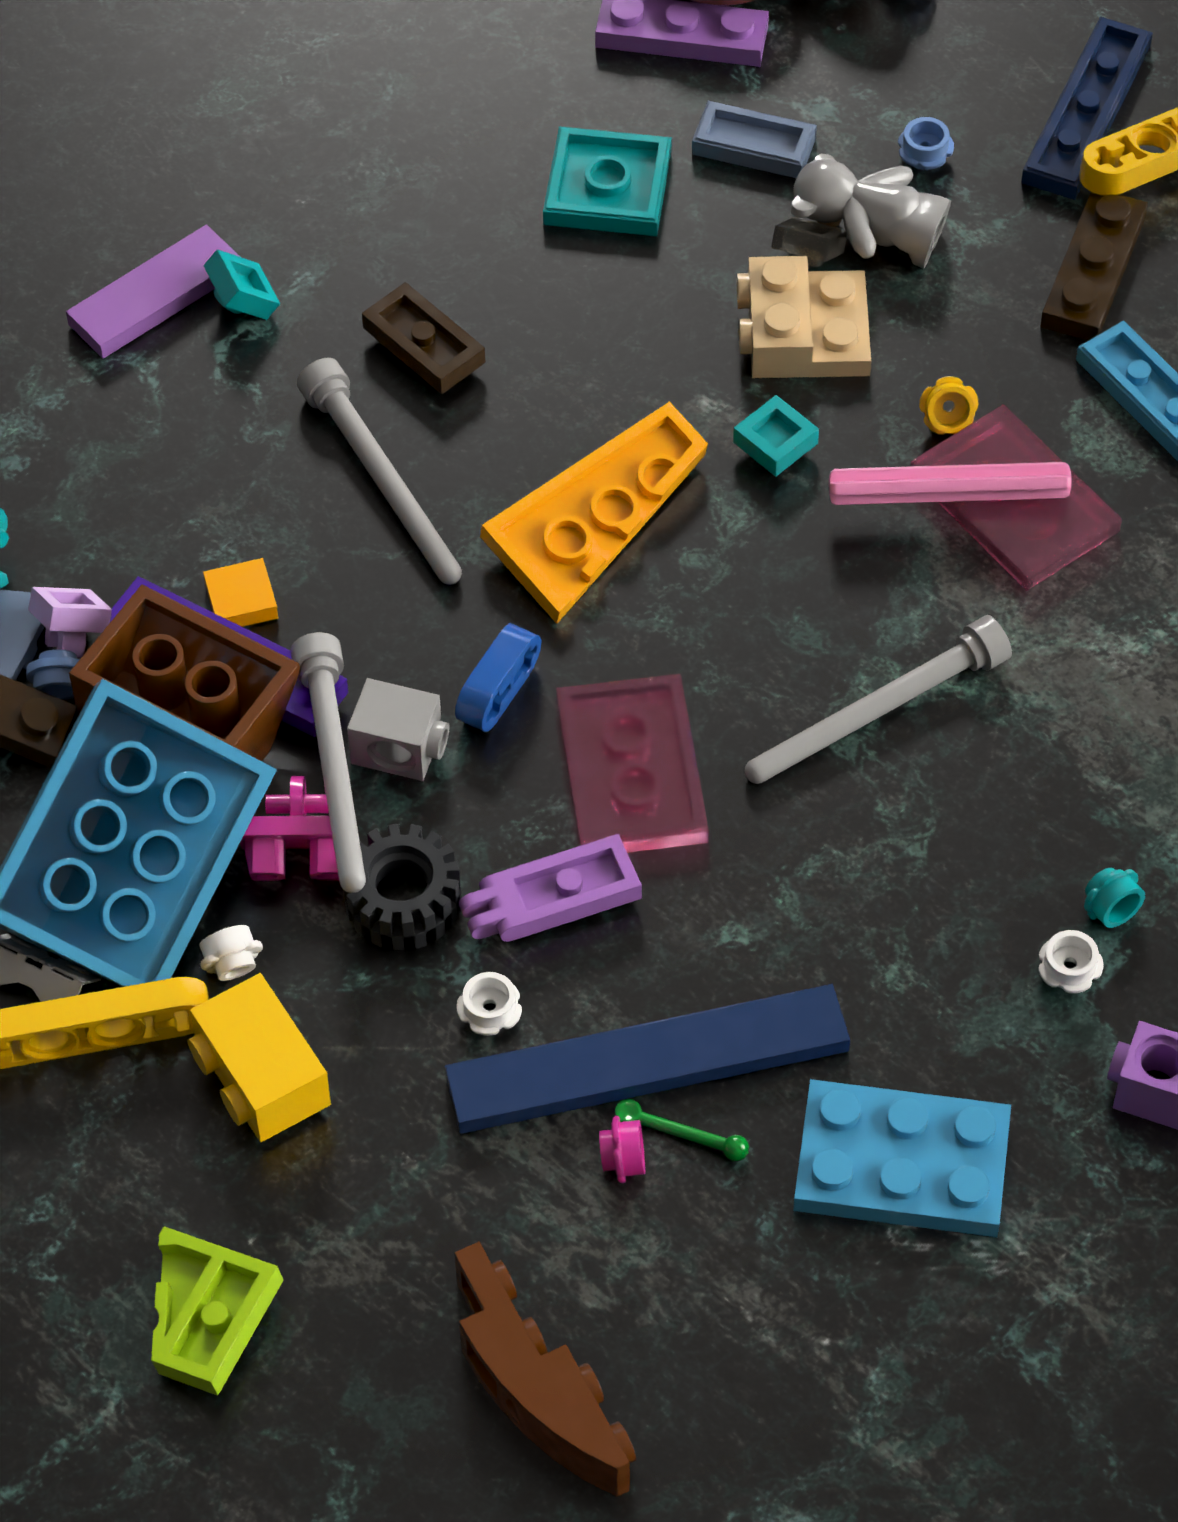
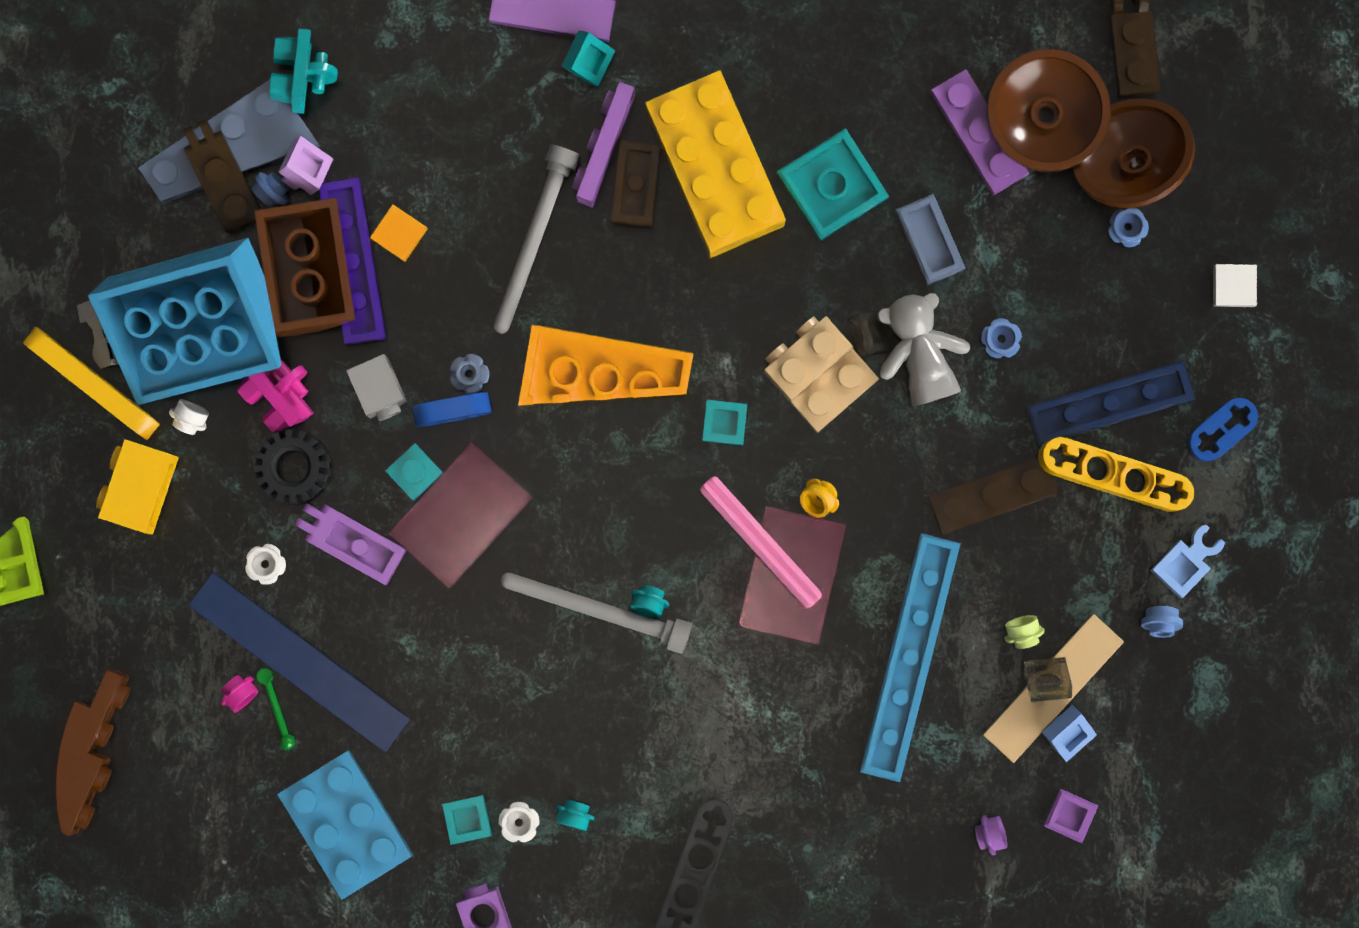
camera: 50 degrees right, 30 degrees up
(319, 671) = (369, 324): light grey piece -> none
(351, 333) = (603, 143): none -> medium lavender plate
(469, 650) = (474, 383): none -> sand blue plate
(480, 249) = (715, 164): none -> yellow brick
(533, 774) = (414, 472): none -> teal plate
(916, 642) = (648, 602): none -> teal plate
(1017, 1011) = (467, 819): none -> teal plate

